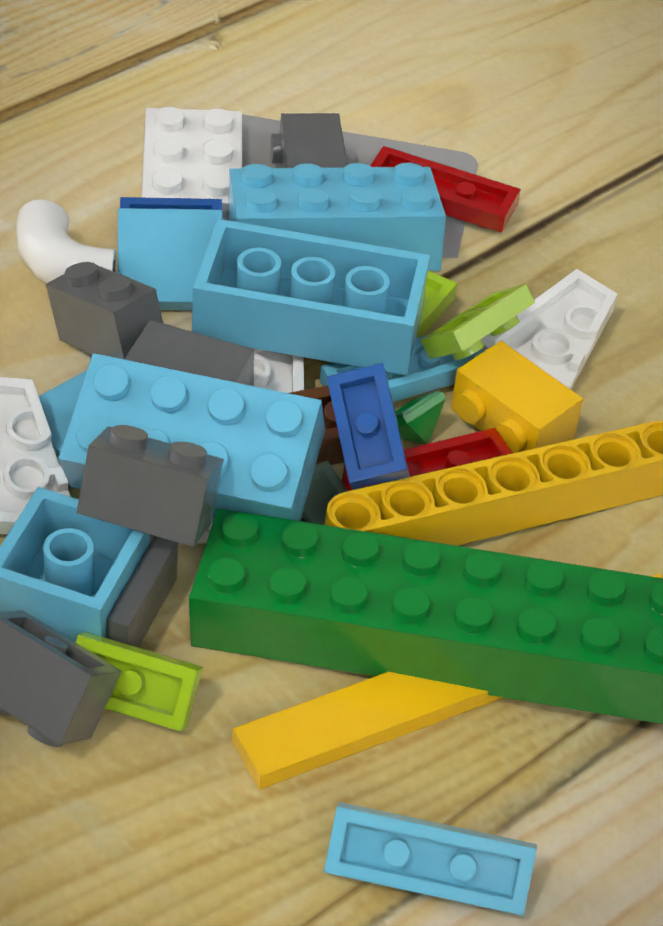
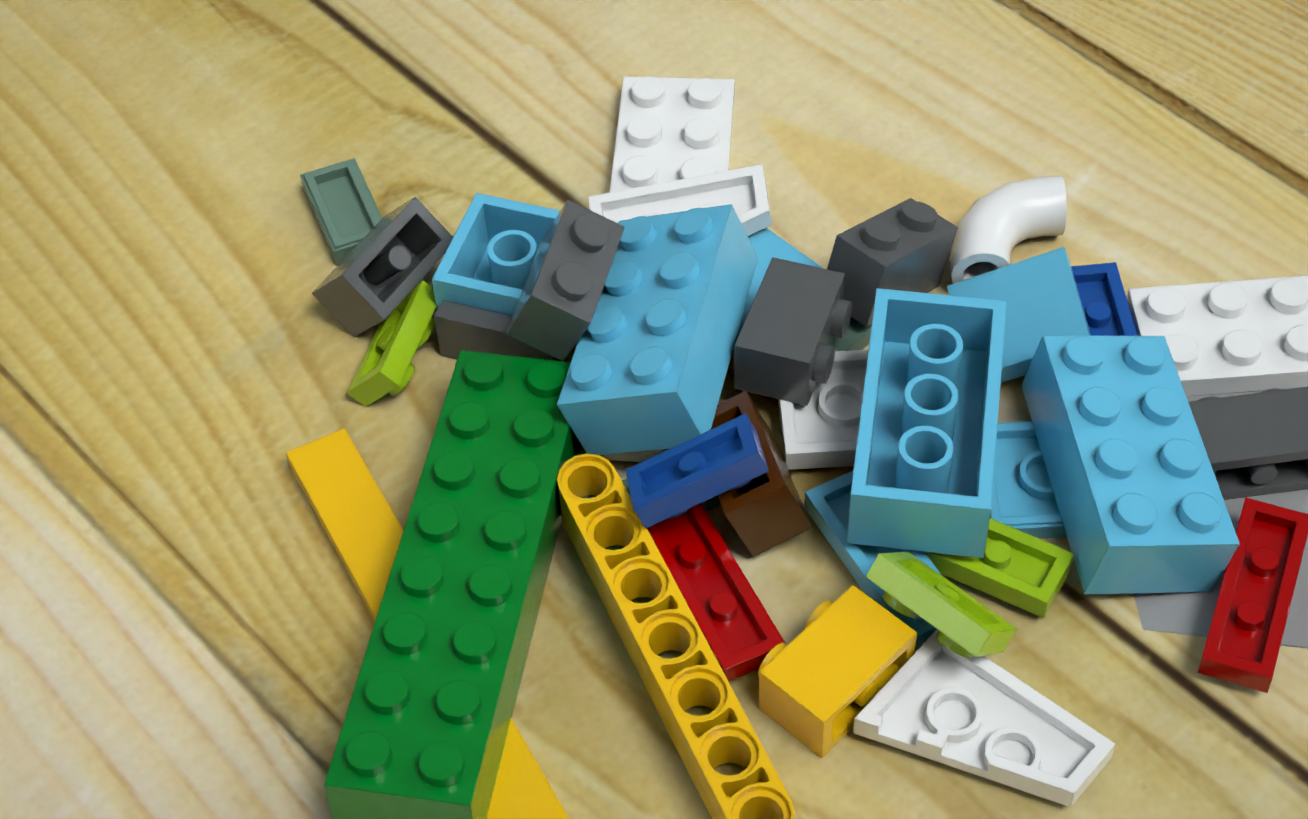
camera: 95 degrees right, 5 degrees up
(419, 417) = (801, 568): green slope -> none
(430, 858) = (175, 590): medium azure plate -> none

